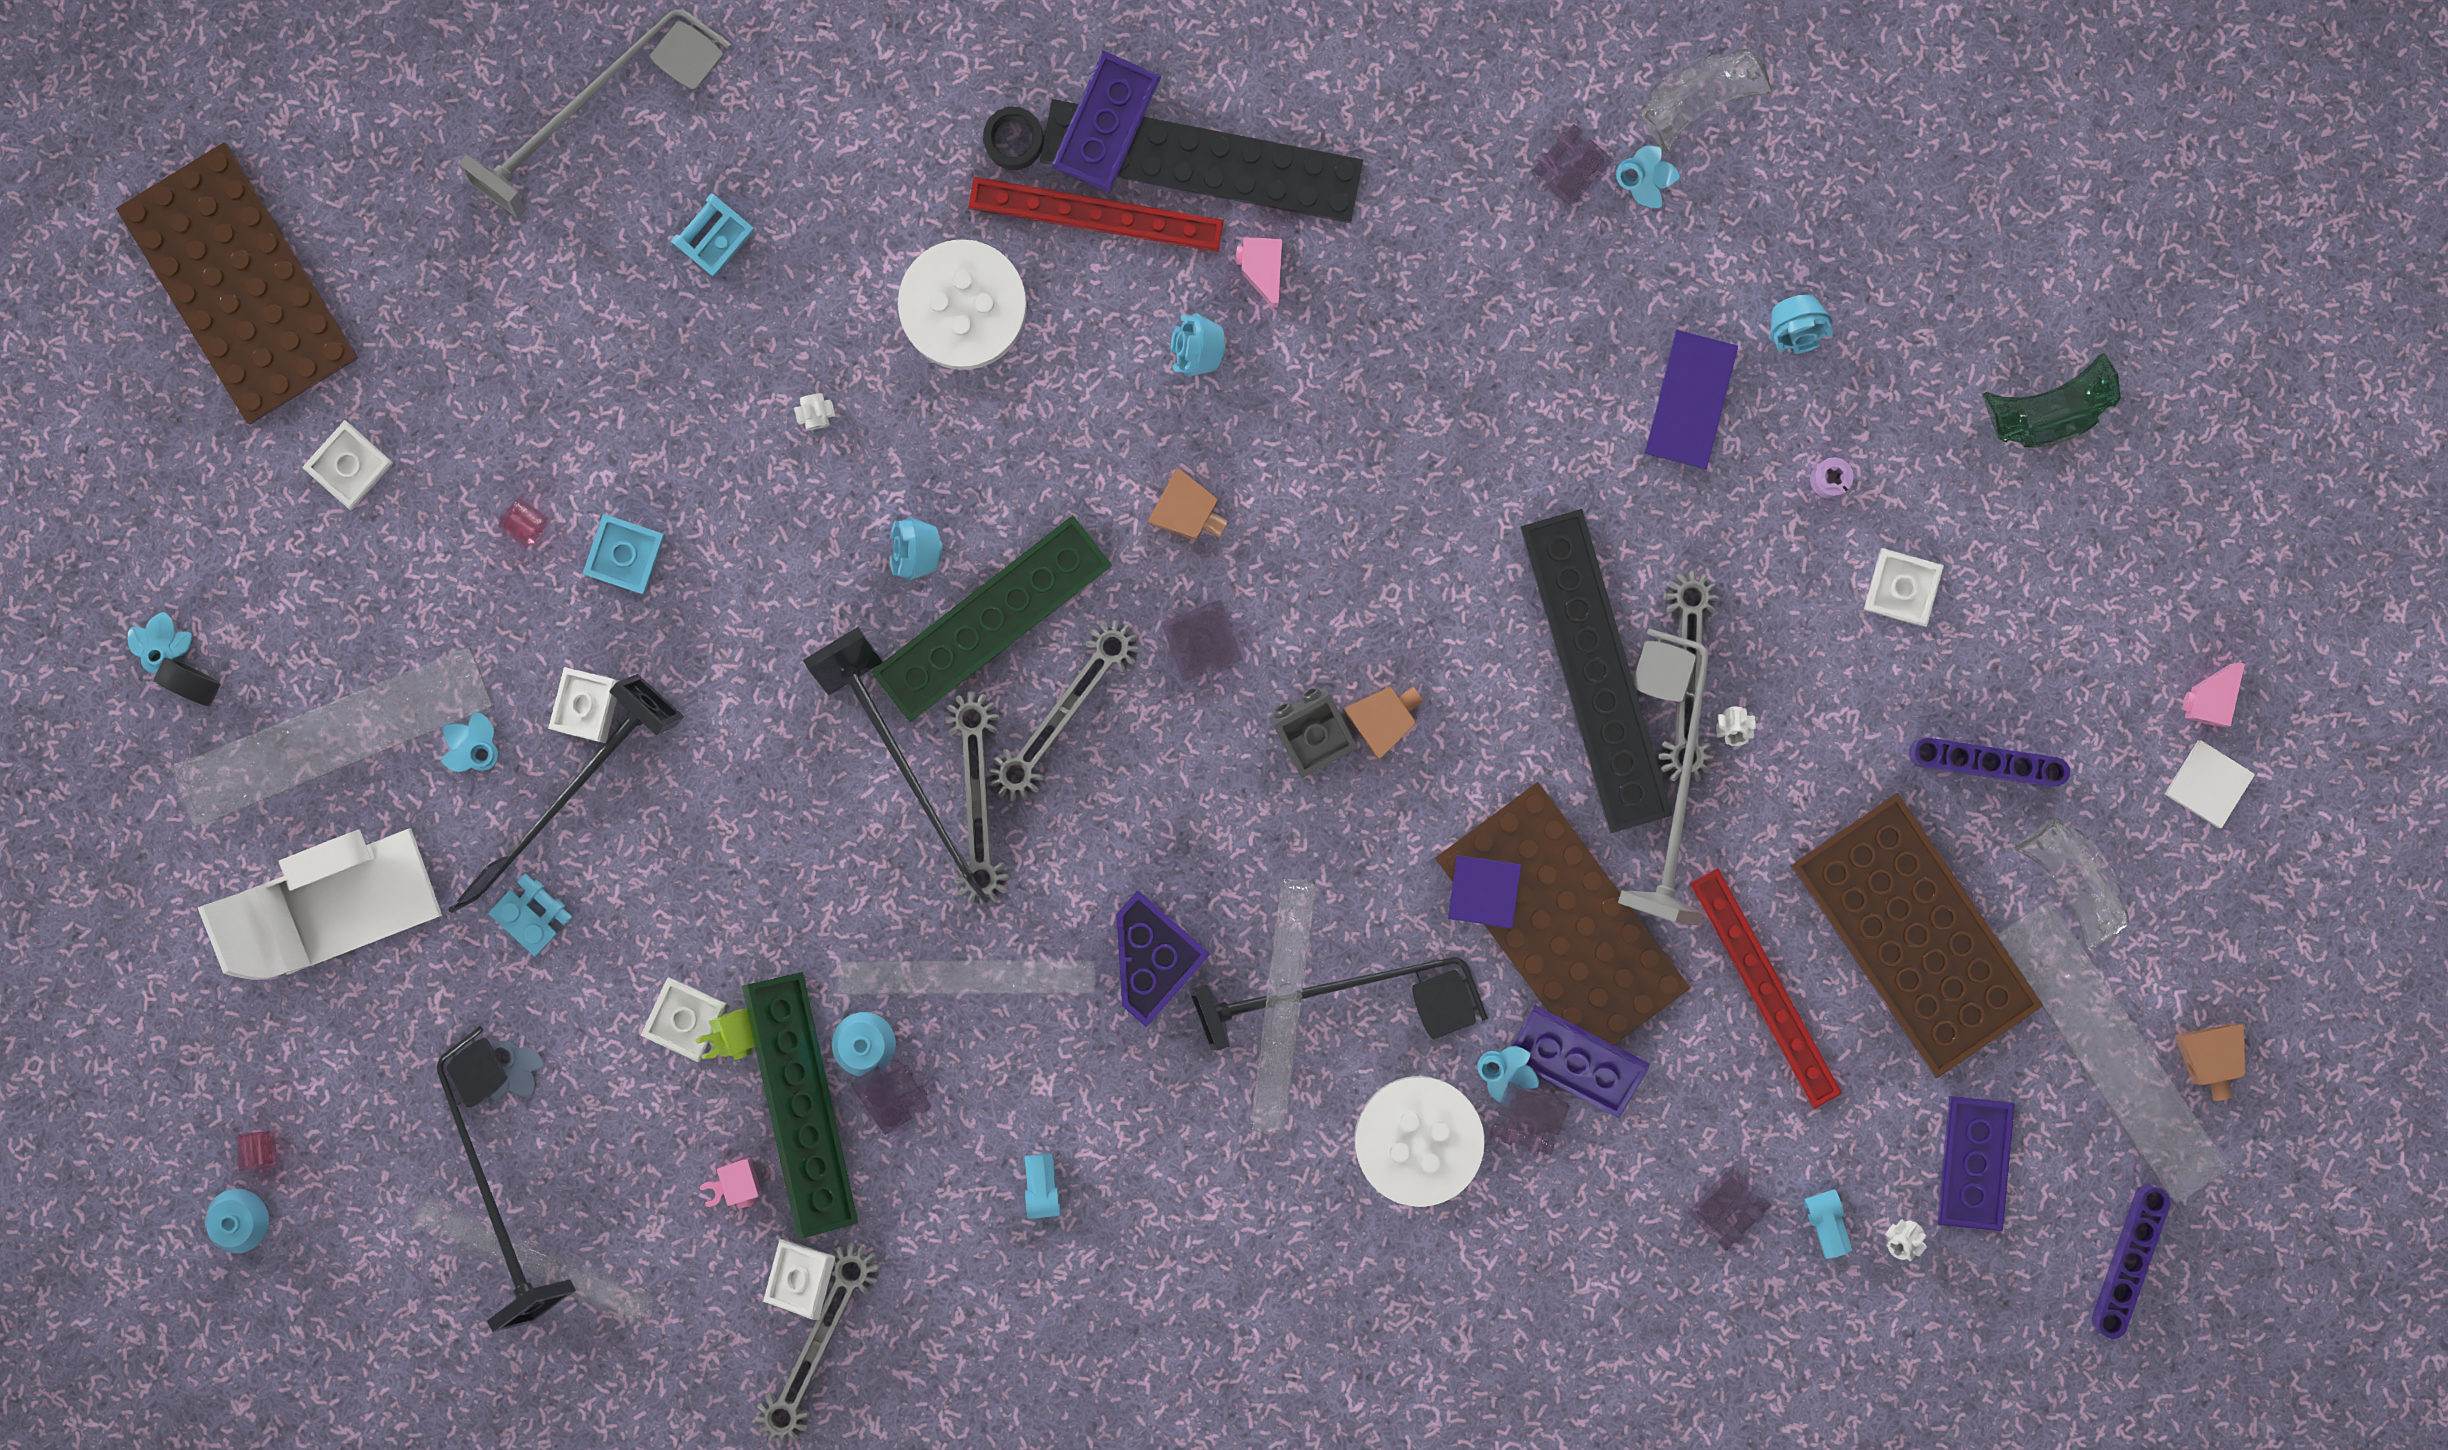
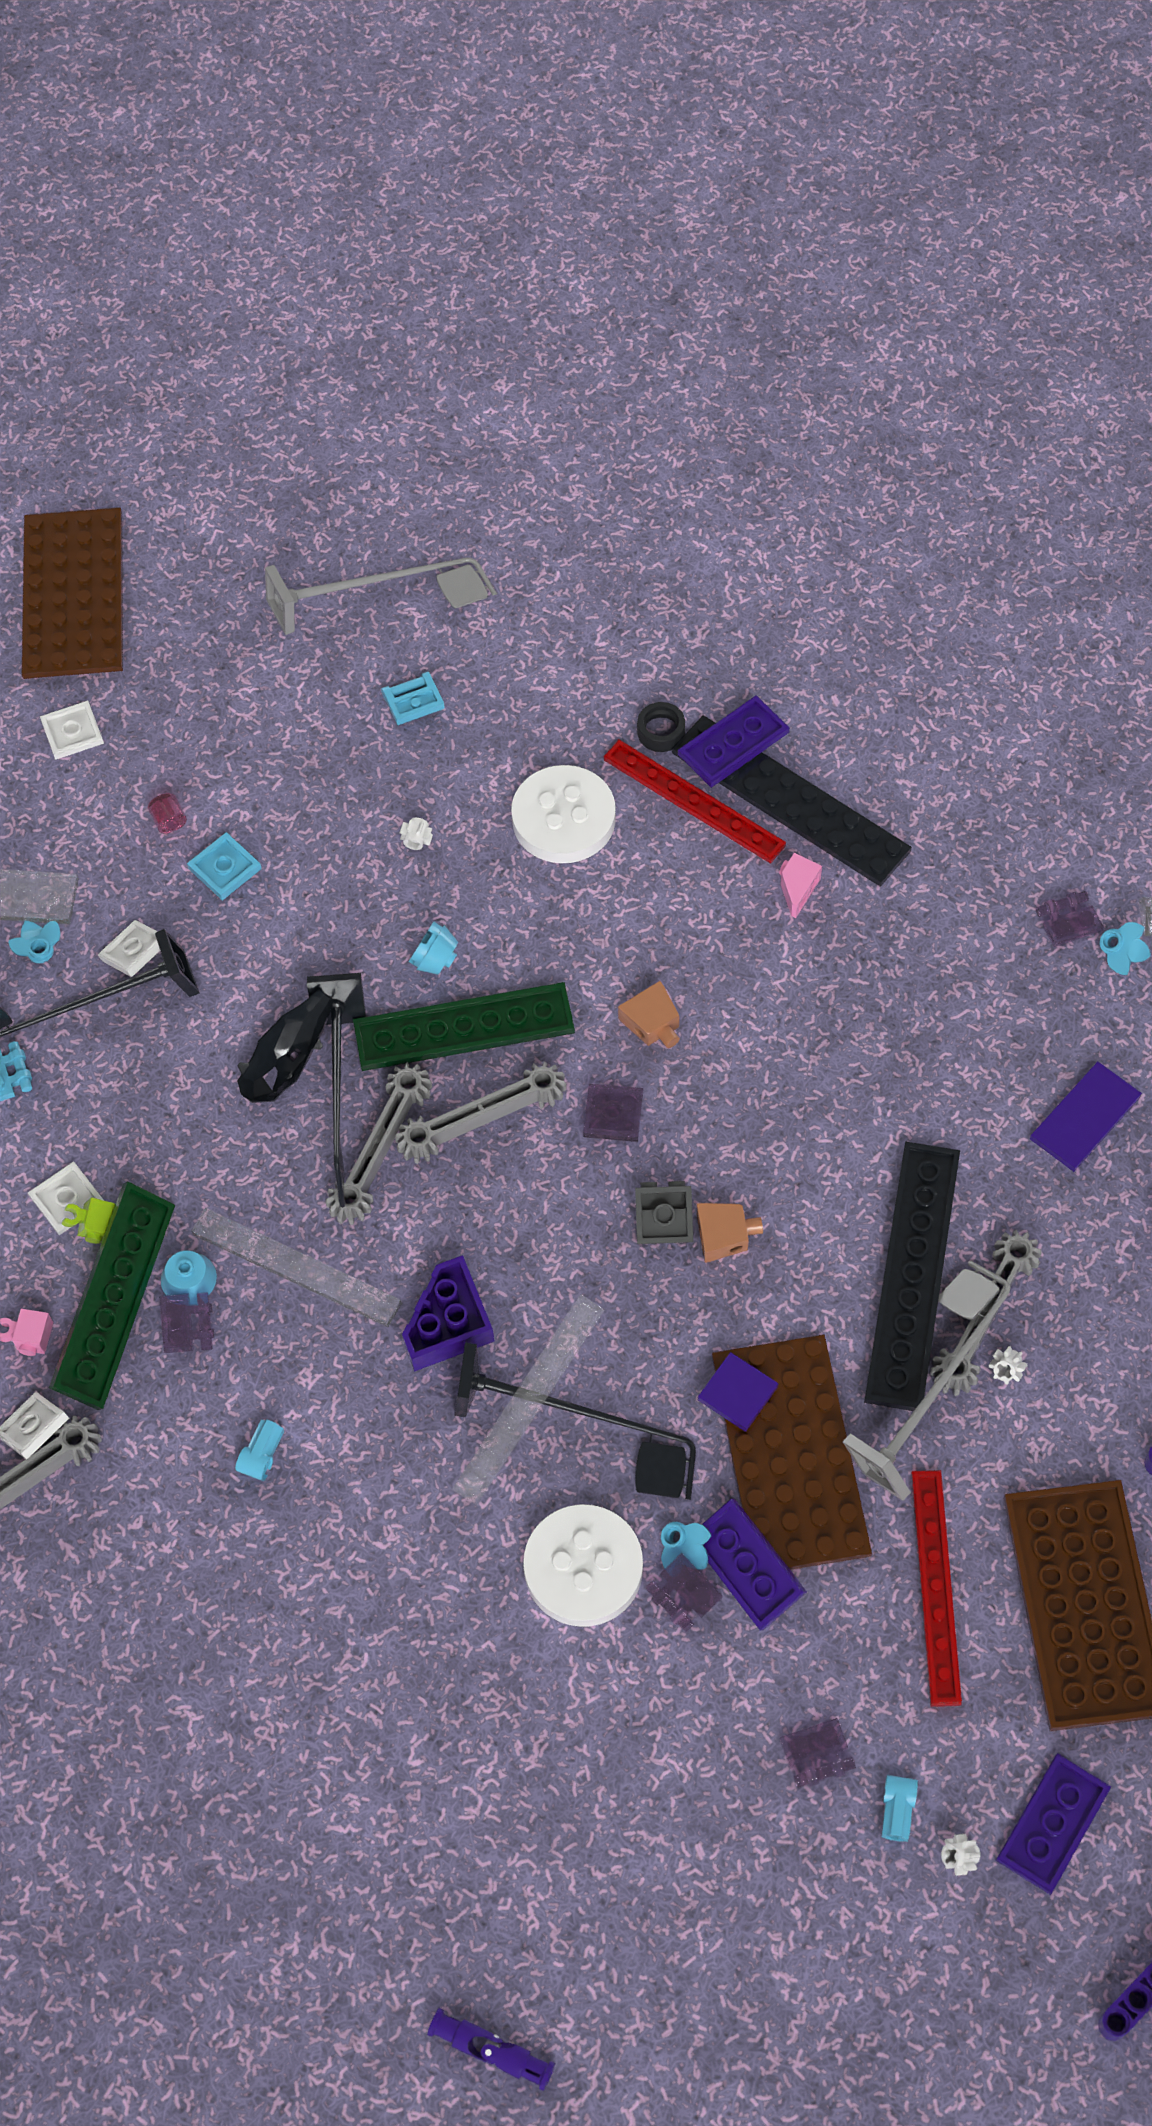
camera: 30 degrees right, 25 degrees down
(830, 714) = (293, 1032): none -> black piece
(1197, 345) = (721, 909): medium azure cone -> none

